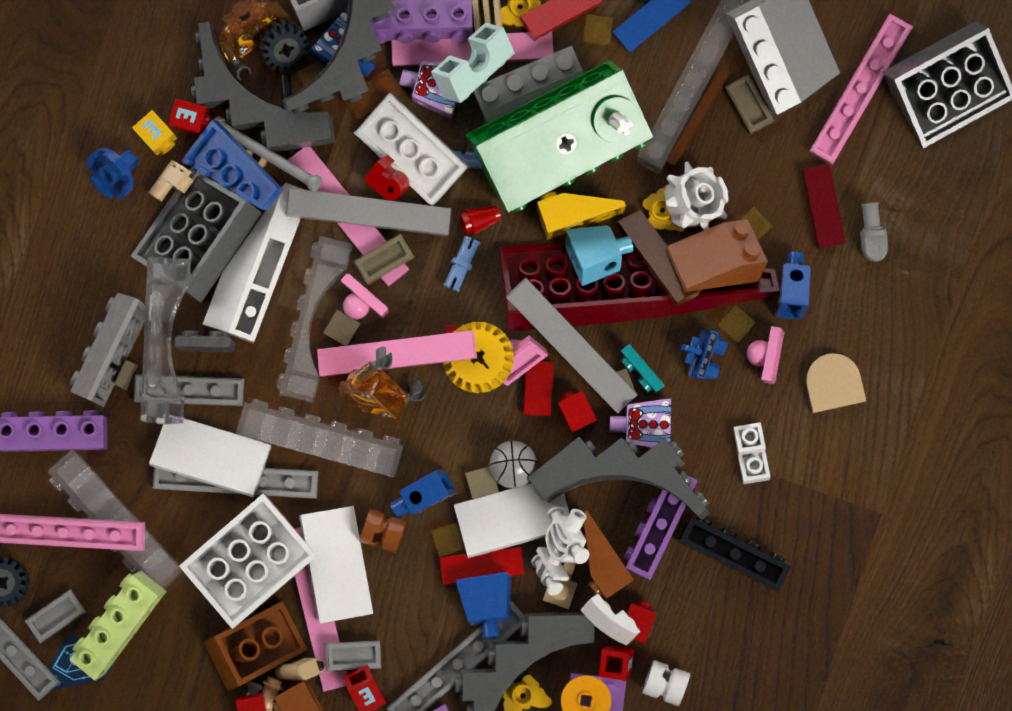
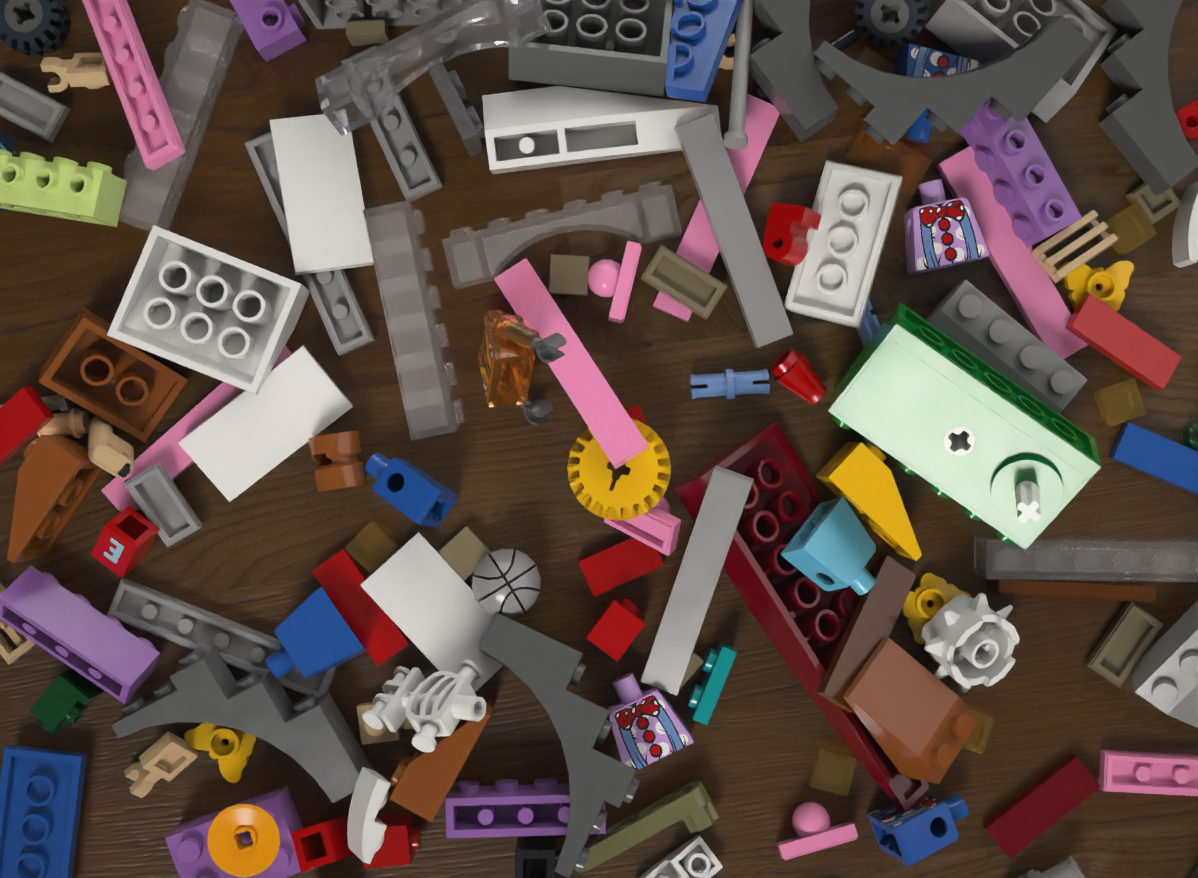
camera: 65 degrees right, 5 degrees up
(54, 564) = (83, 70): none -> tan plate
(459, 77) = (972, 256): light aqua arch -> none
(700, 354) = (771, 749): blue hips -> none
(710, 421) = (687, 803): none -> olive beam

